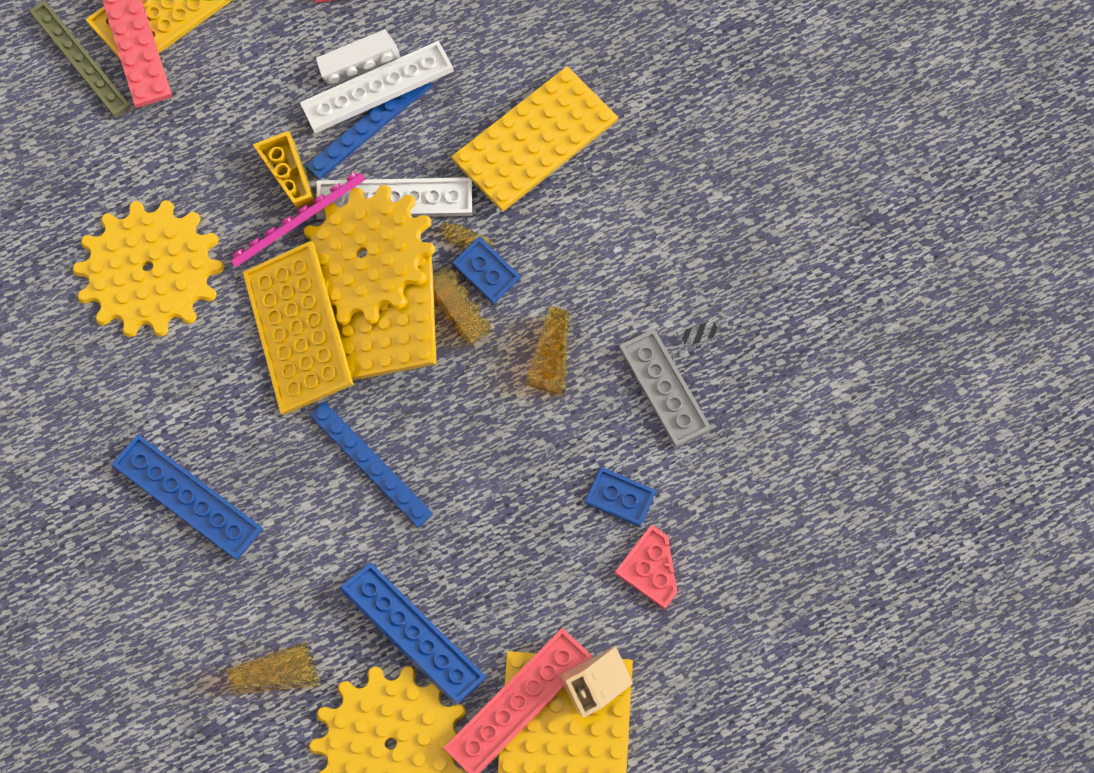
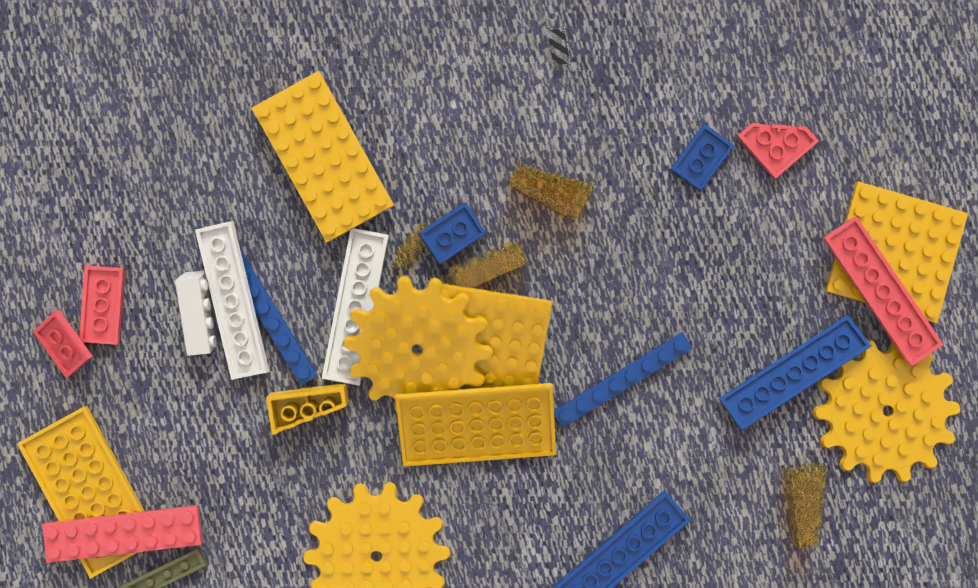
camera: 80 degrees left, 20 degrees up
(290, 223) = (359, 398): dark pink plate -> none
(596, 681) = (884, 218): tan slope -> none
(665, 388) = (606, 92): light grey plate -> none

